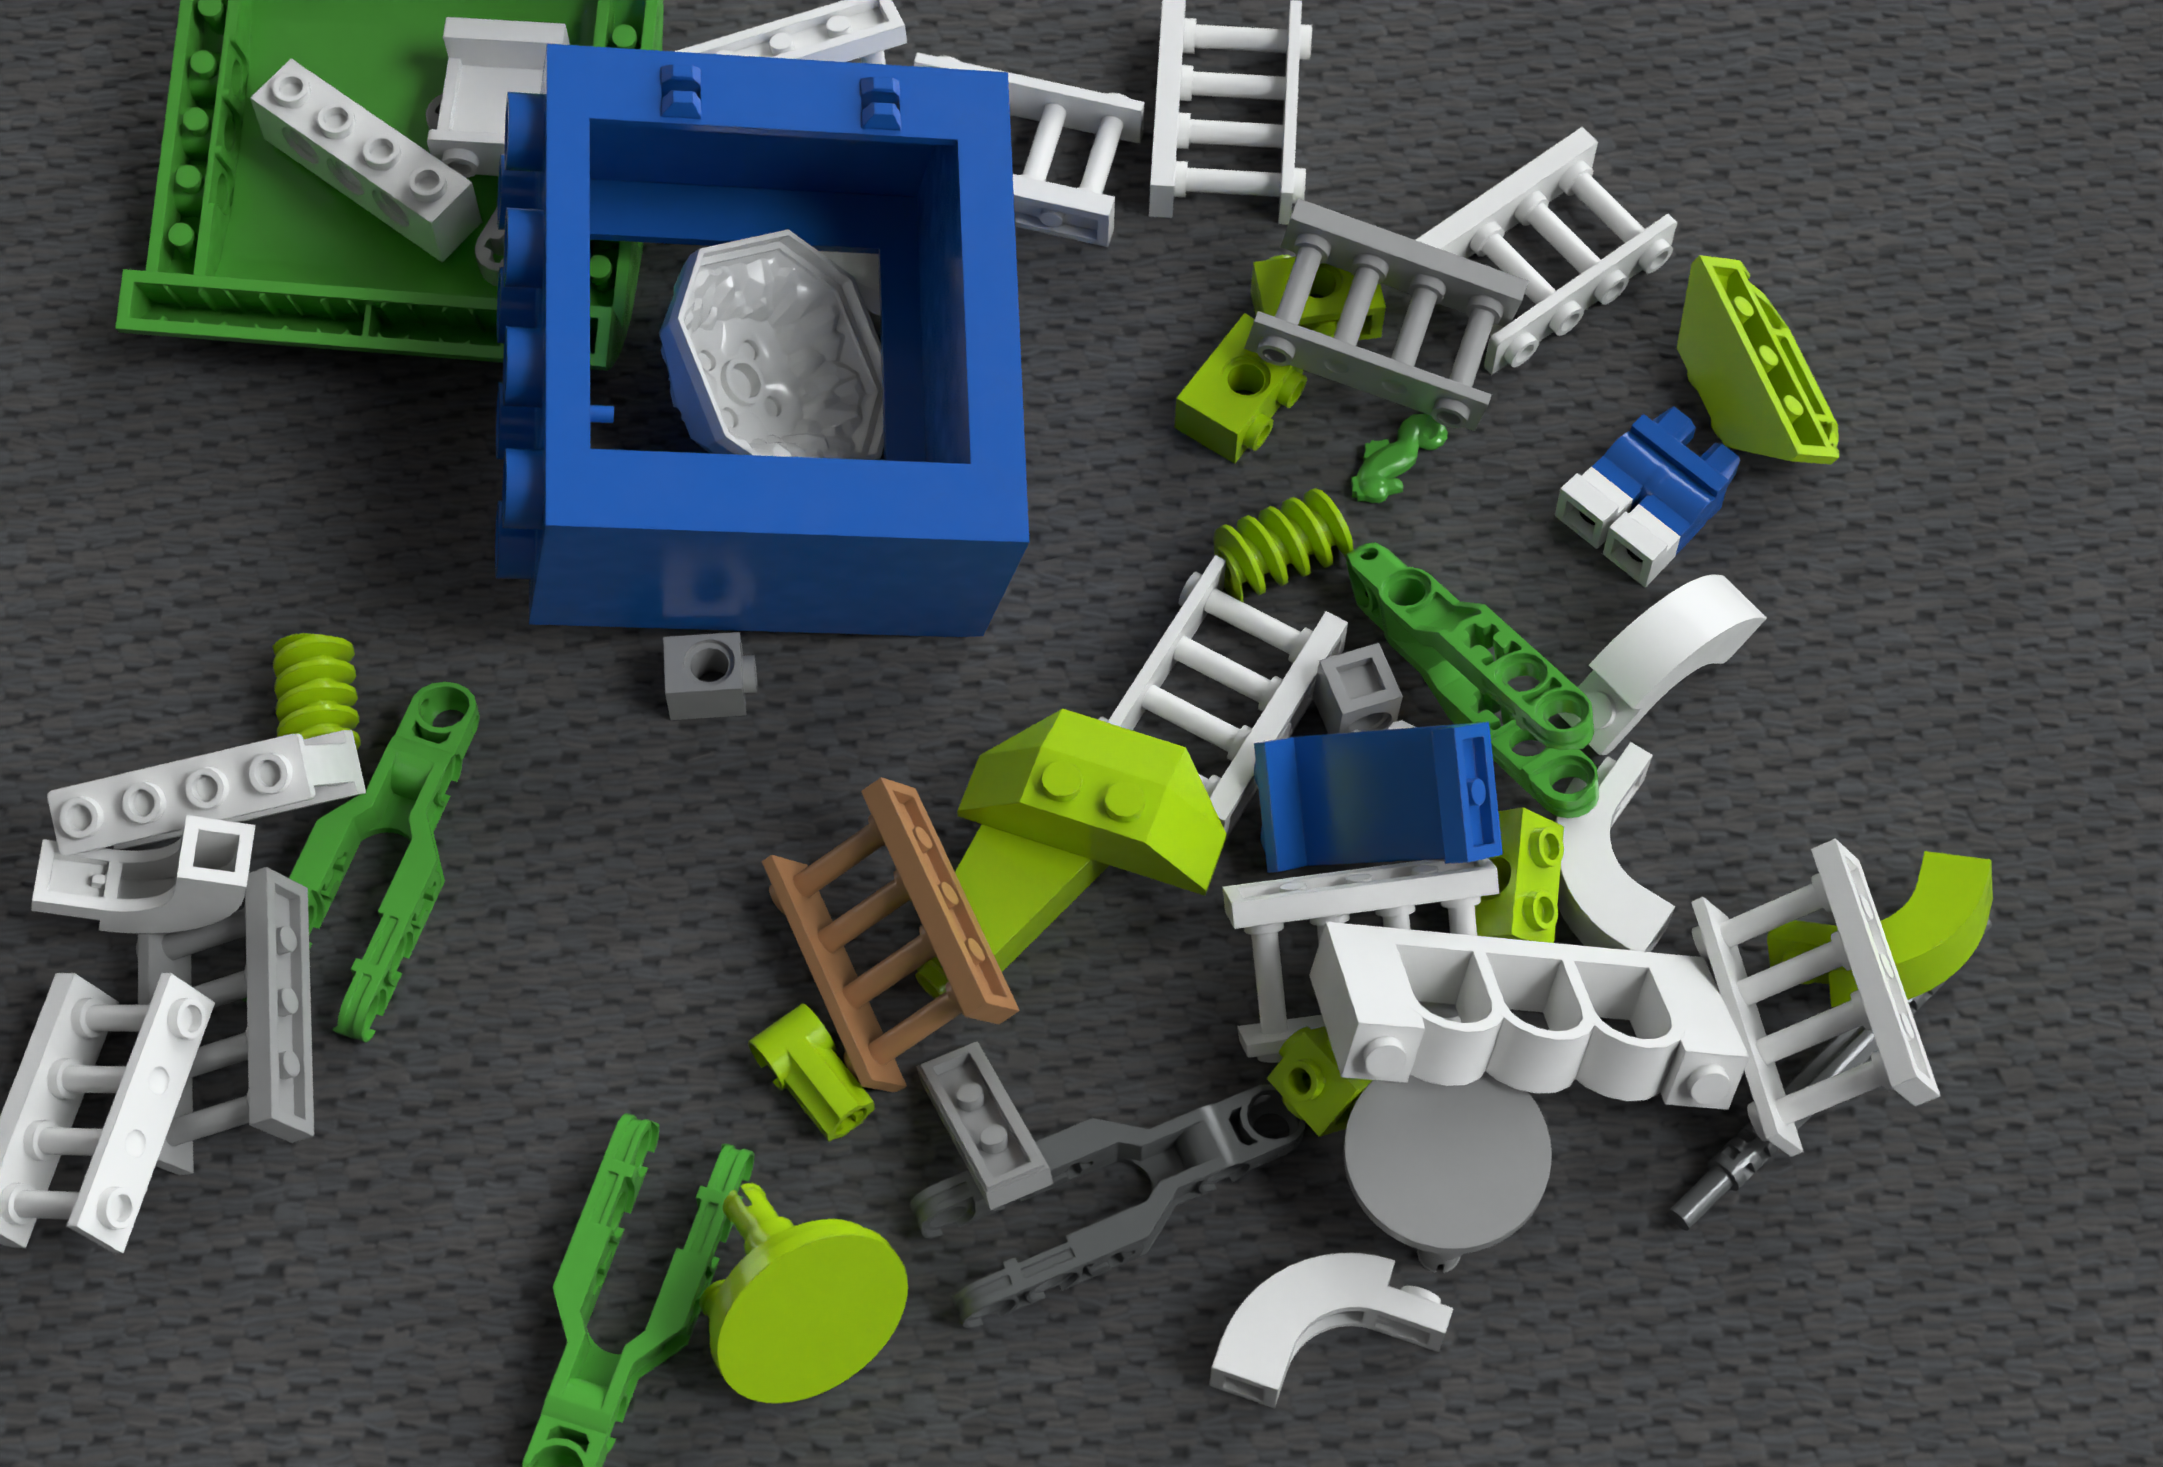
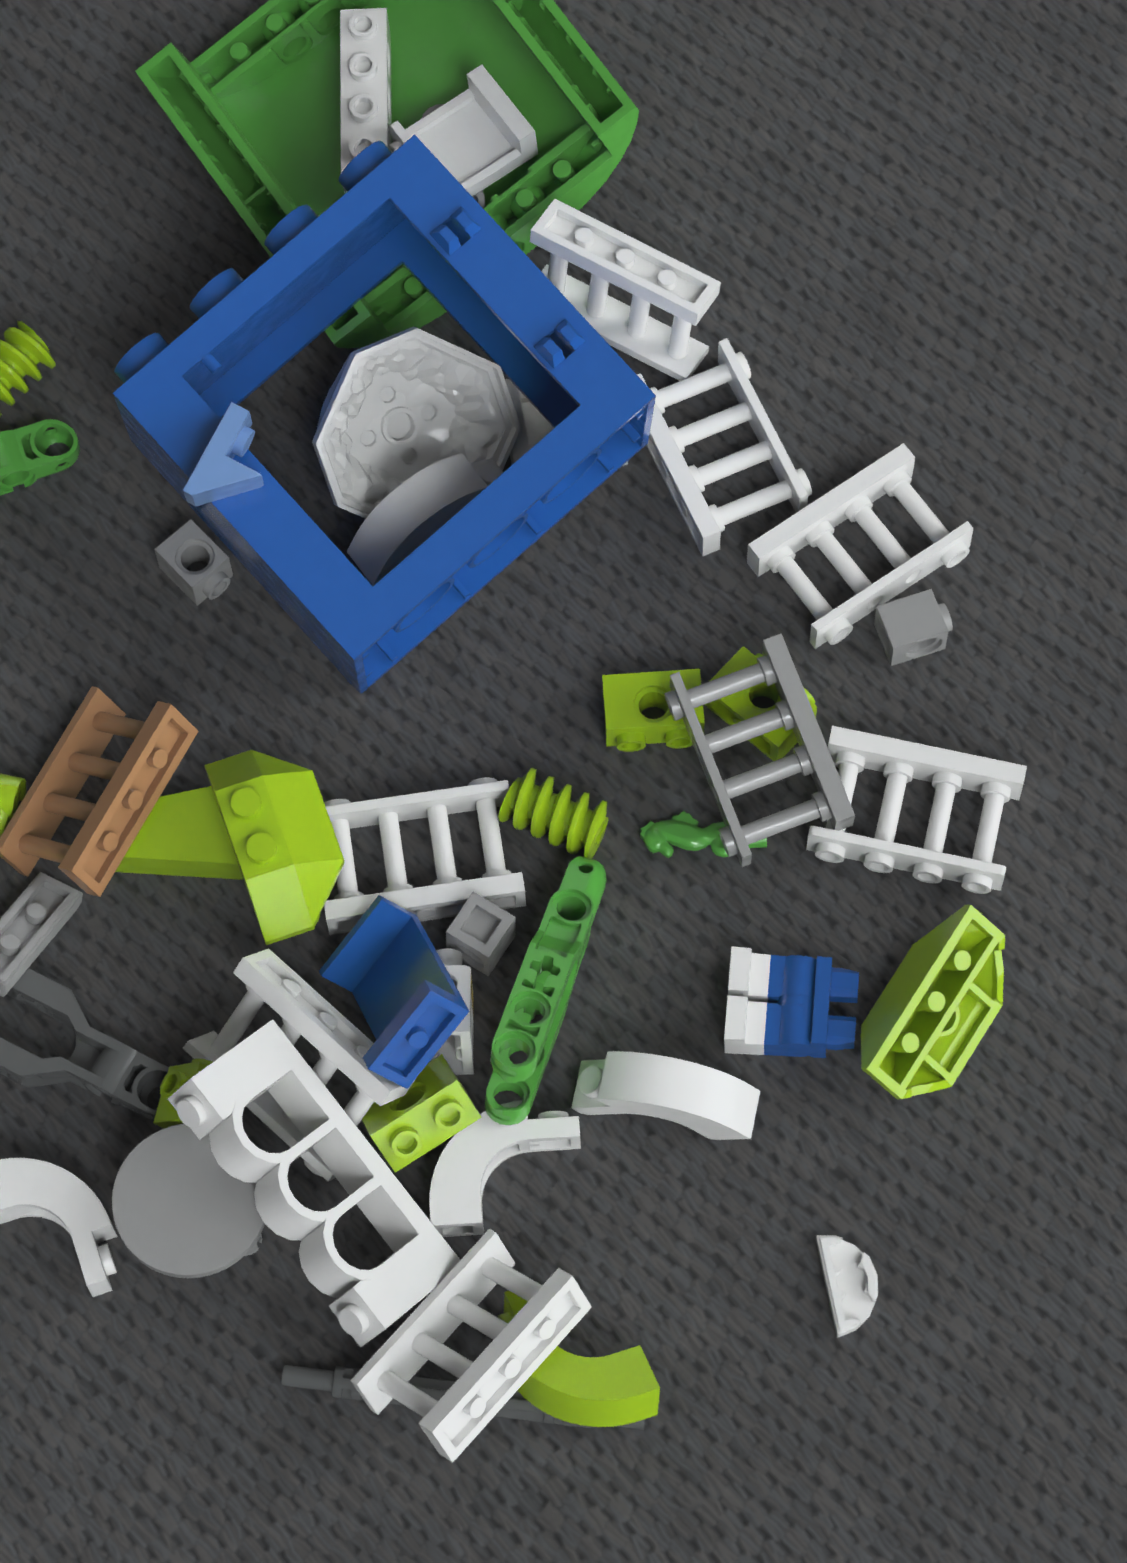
camera: 55 degrees right, 5 degrees up
(729, 484) = (216, 472): none -> medium blue slope
(878, 389) = (417, 512): none -> white arch
(1348, 125) = (912, 626): none -> light grey brick
(1972, 646) = (849, 1282): none -> white tile

